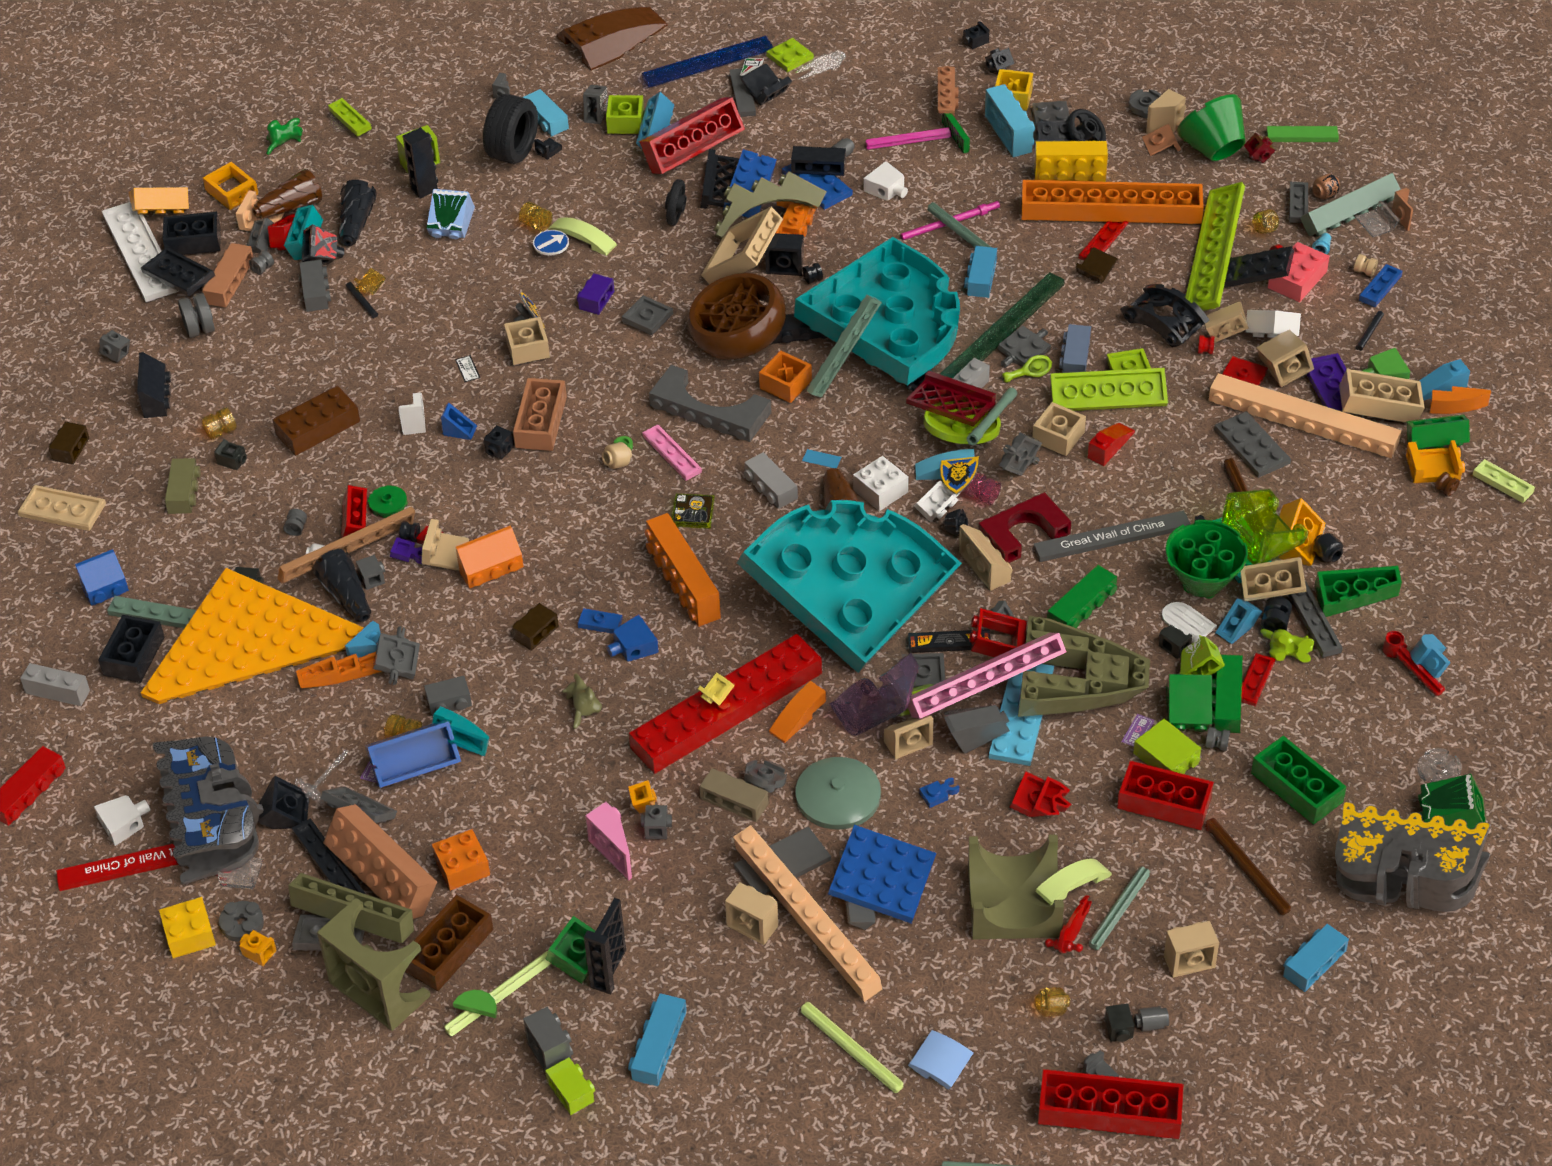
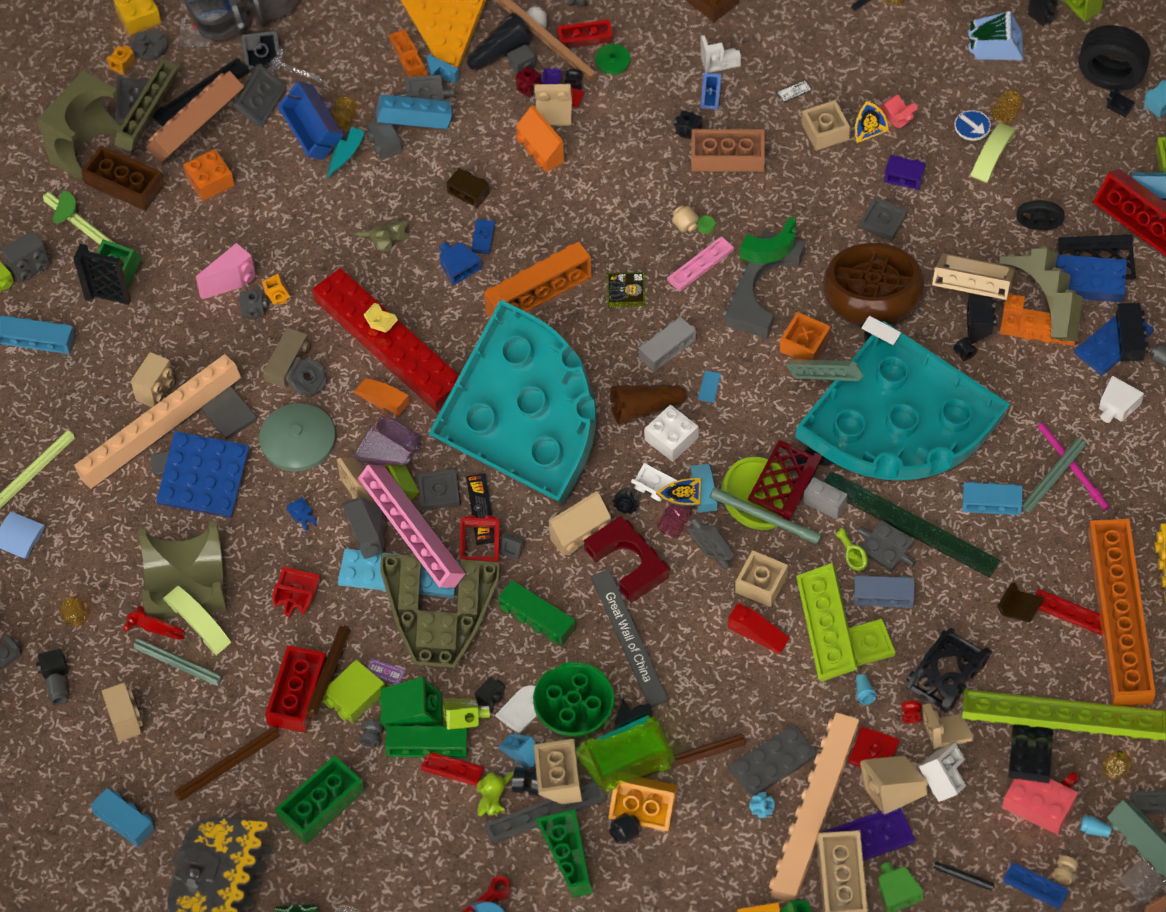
camera: 85 degrees right, 10 degrees up
(404, 566) = (527, 80): none -> dark red brick
(426, 659) = (413, 111): none -> dark azure brick
(526, 285) = (897, 112): none -> coral brick
(679, 393) = (769, 250): none -> green arch
(806, 301) = (881, 330): none -> white sticker
(1122, 763) = (327, 671): none -> reddish brown axle
(1180, 374) = (865, 691): none -> medium azure cone
(1303, 450) = (762, 805): none -> medium azure gear

